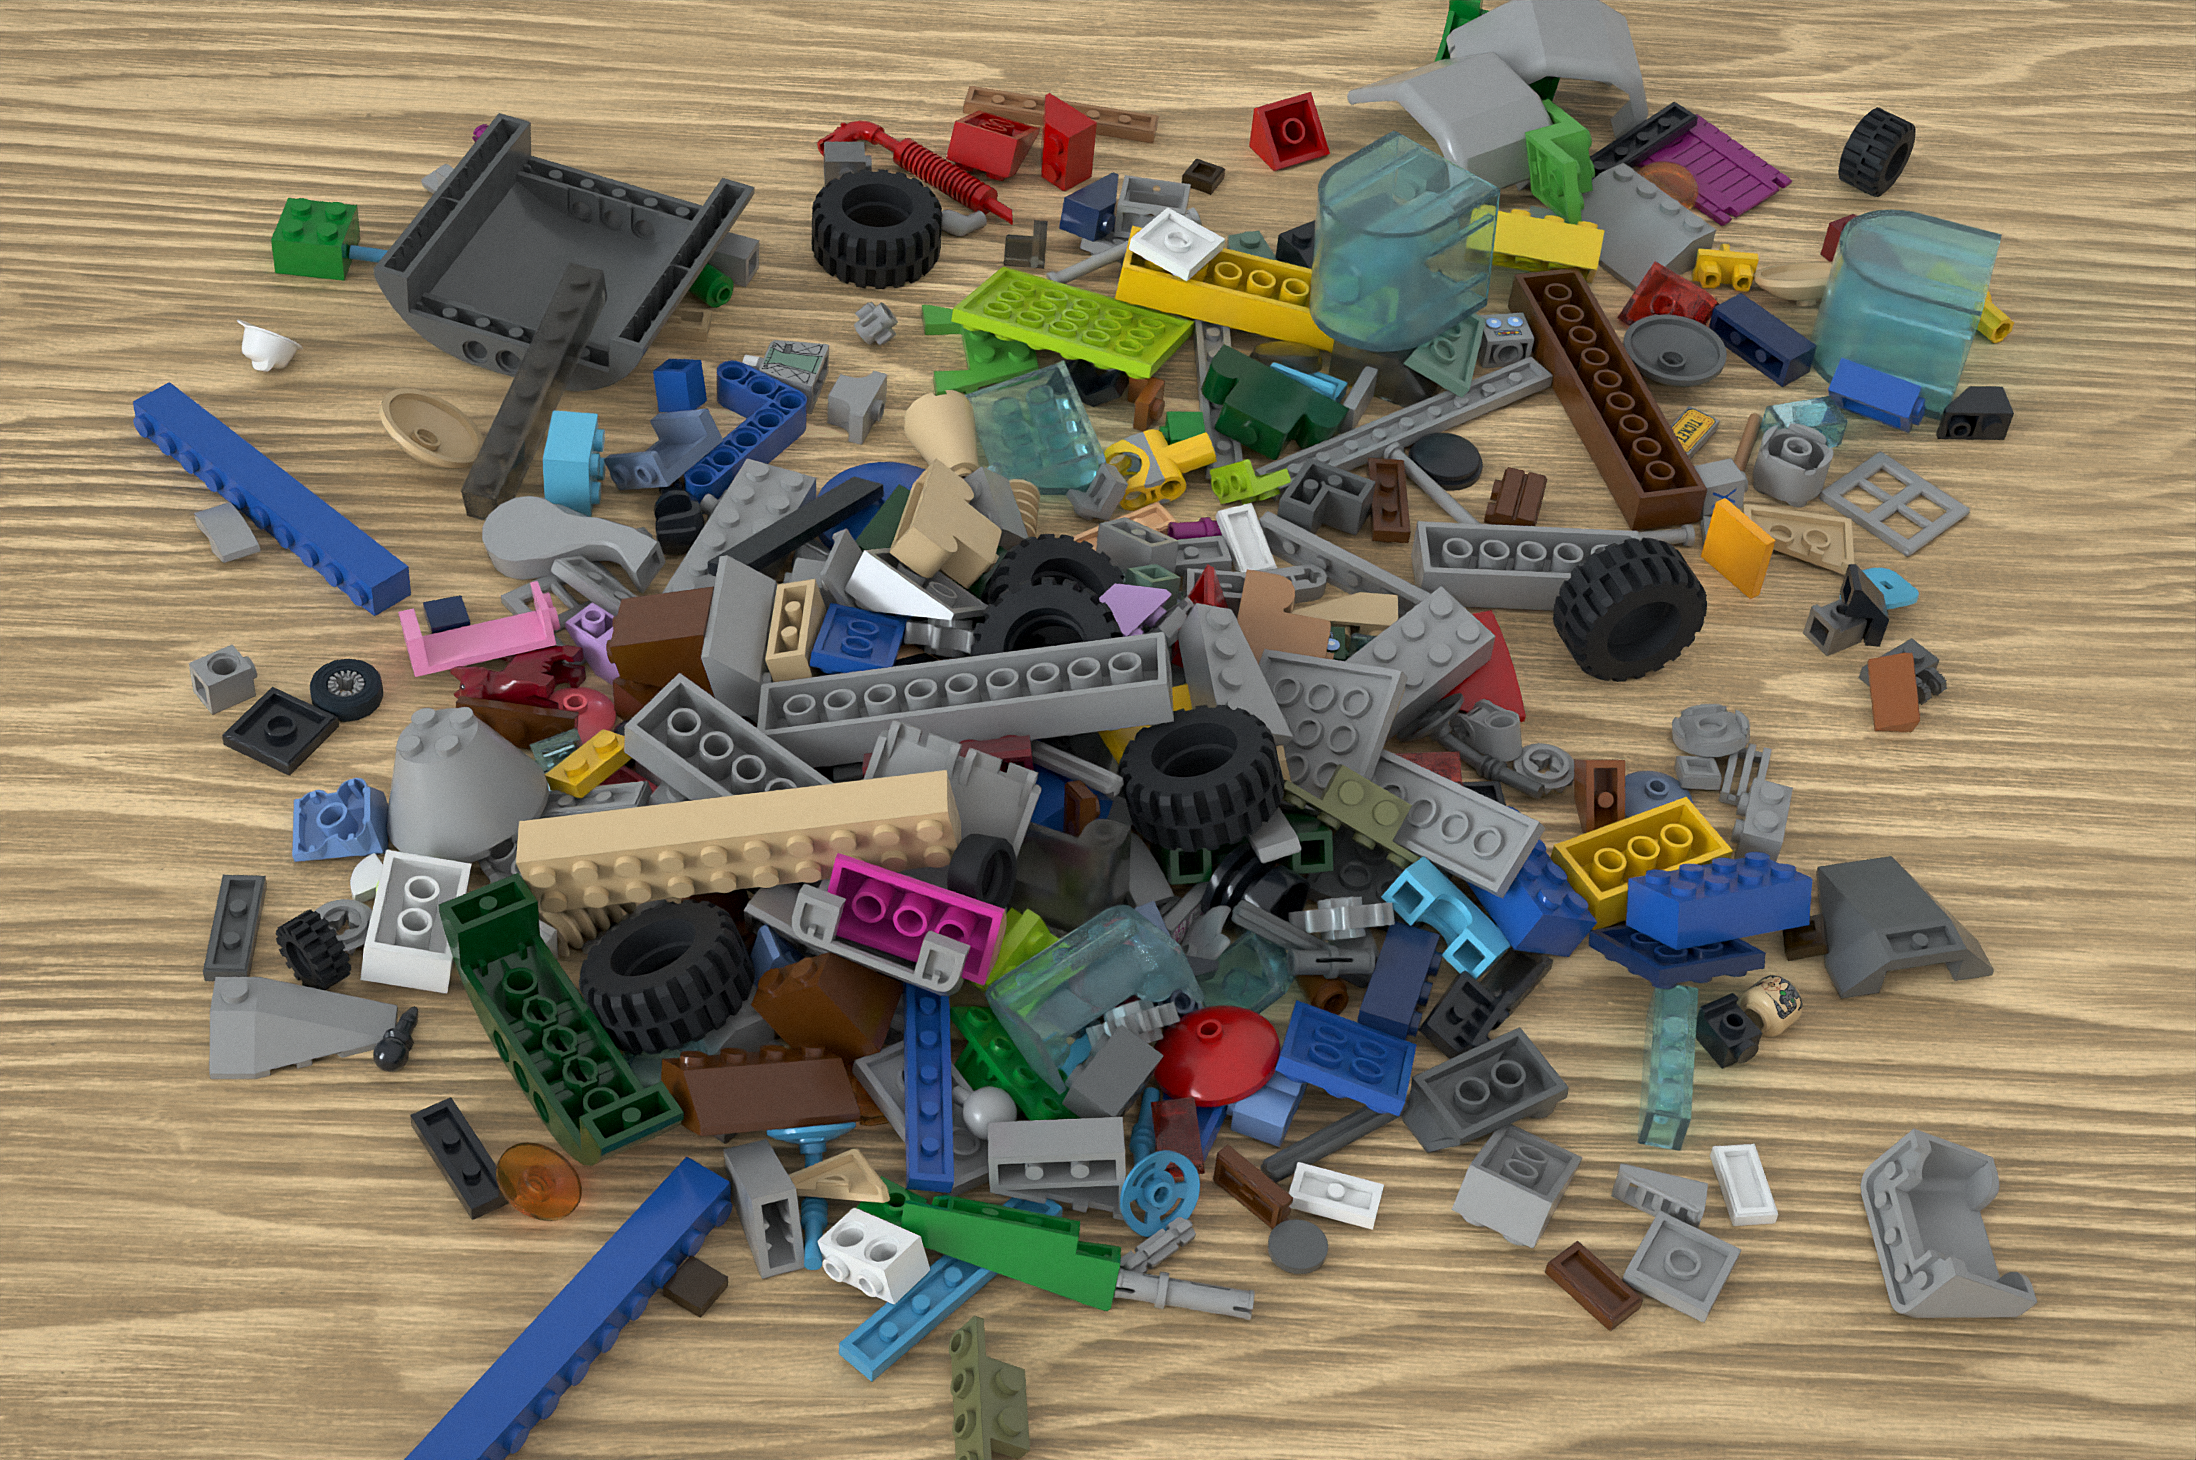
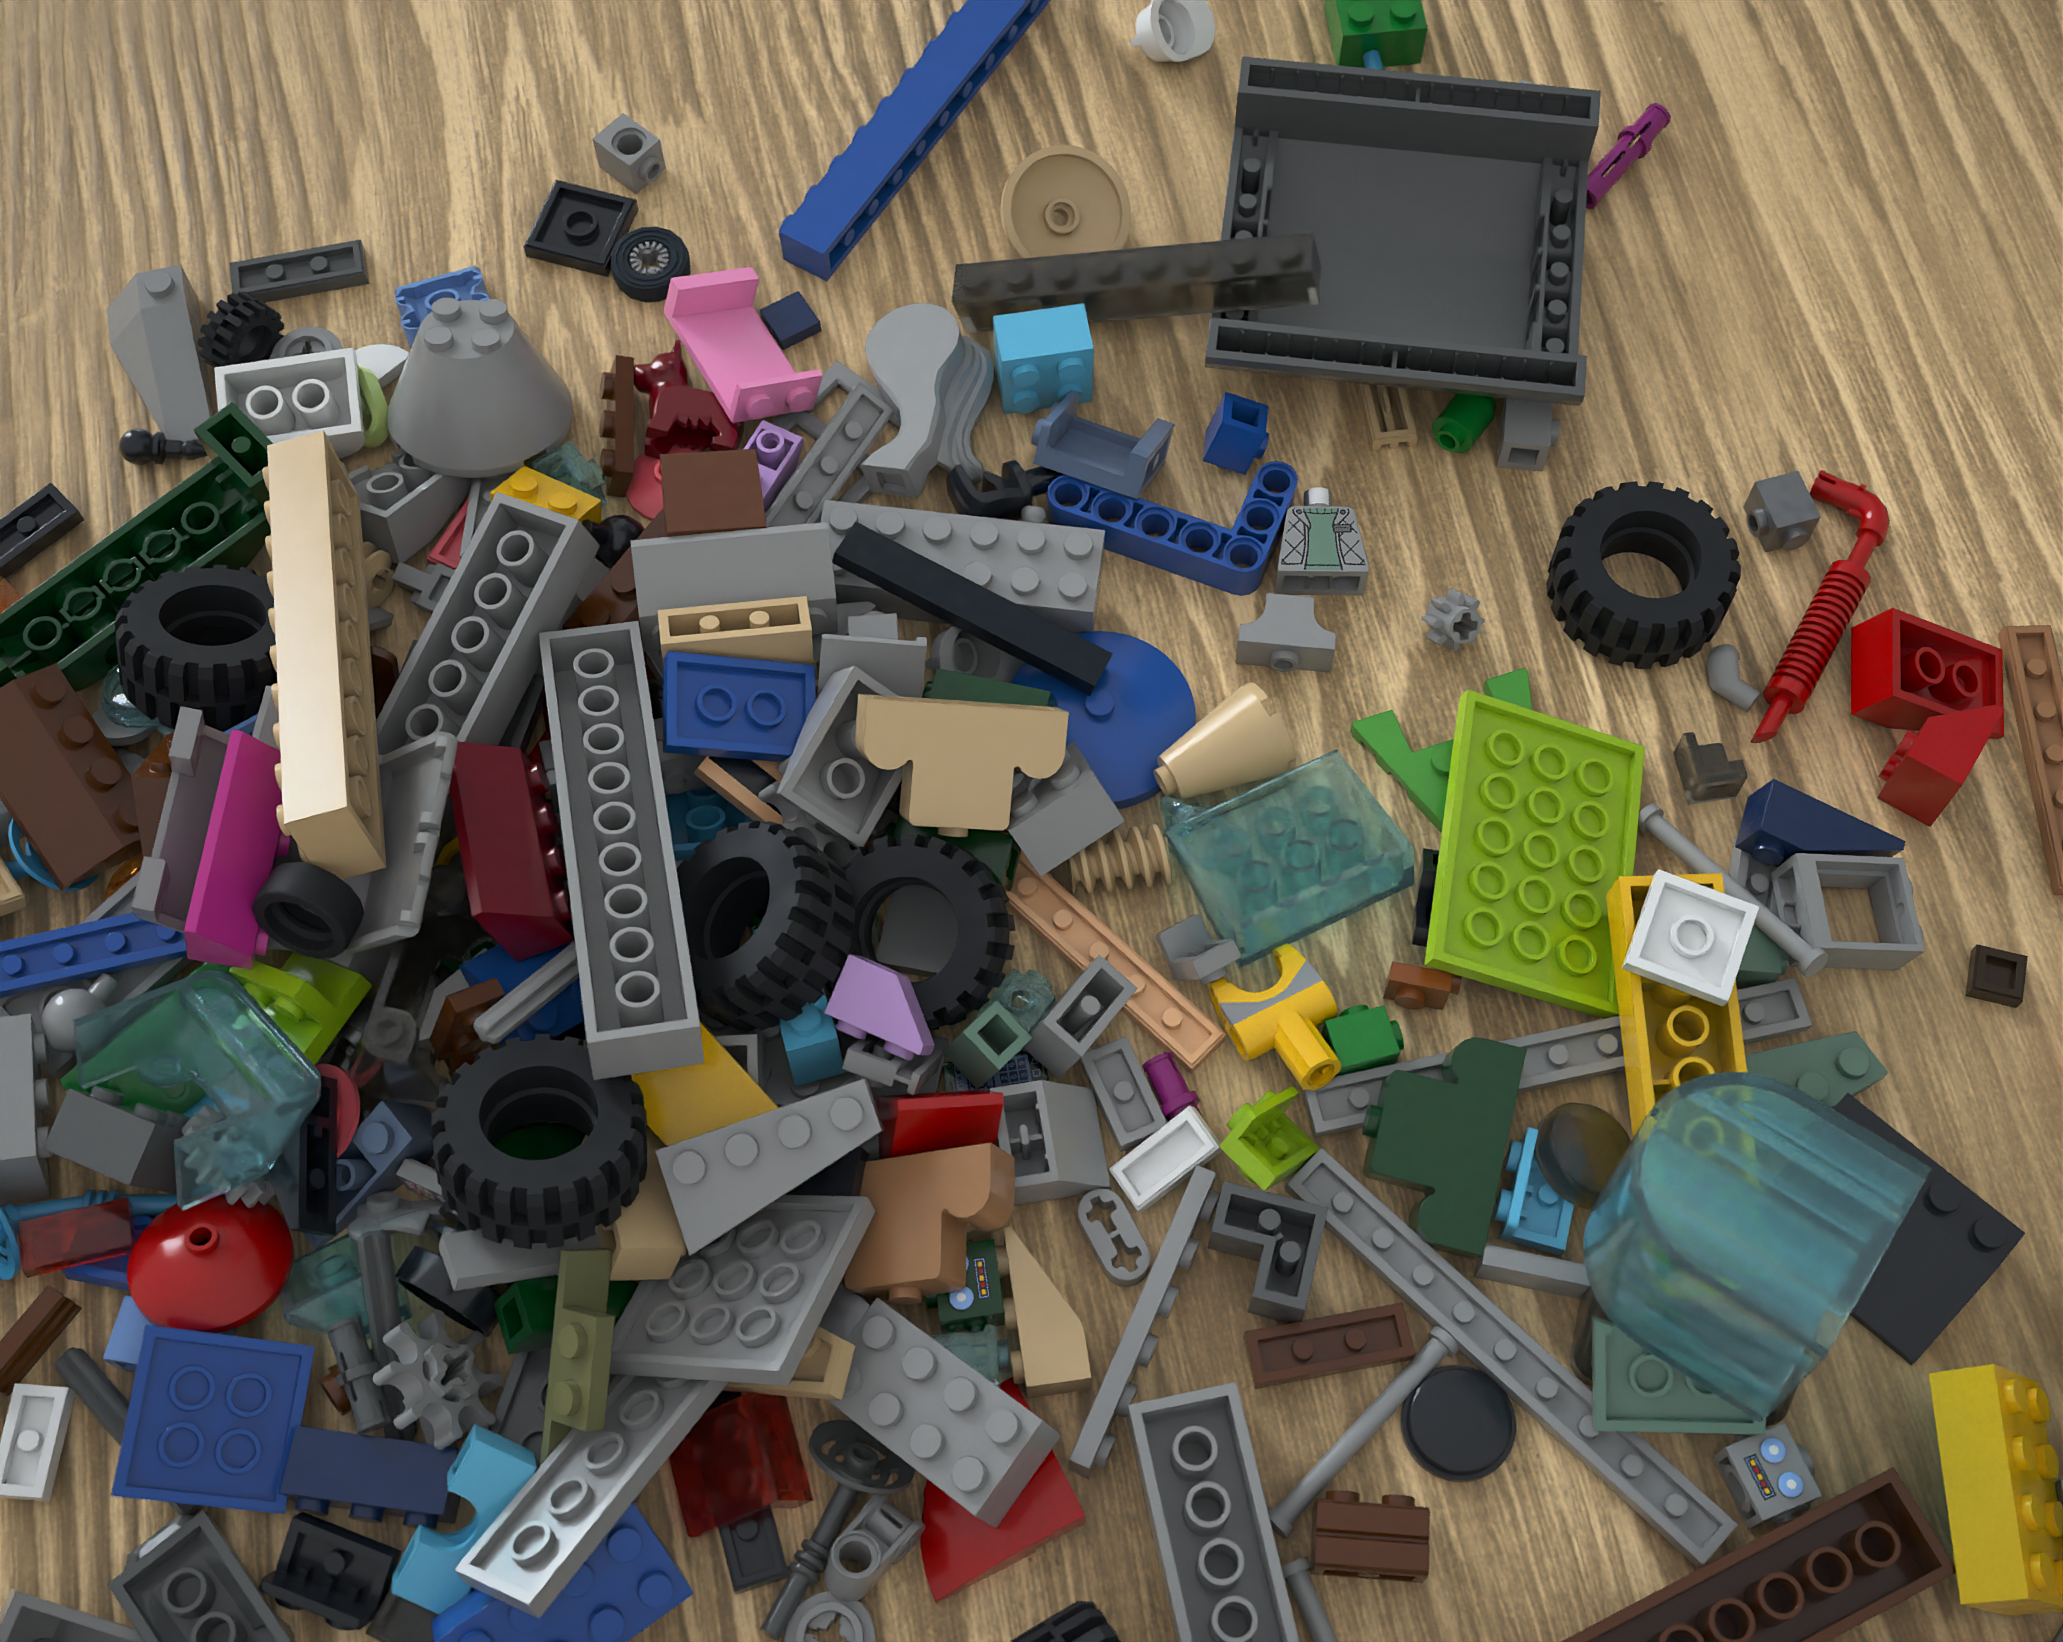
camera: 85 degrees right, 20 degrees up
(227, 532) = (855, 92): light grey slope -> none

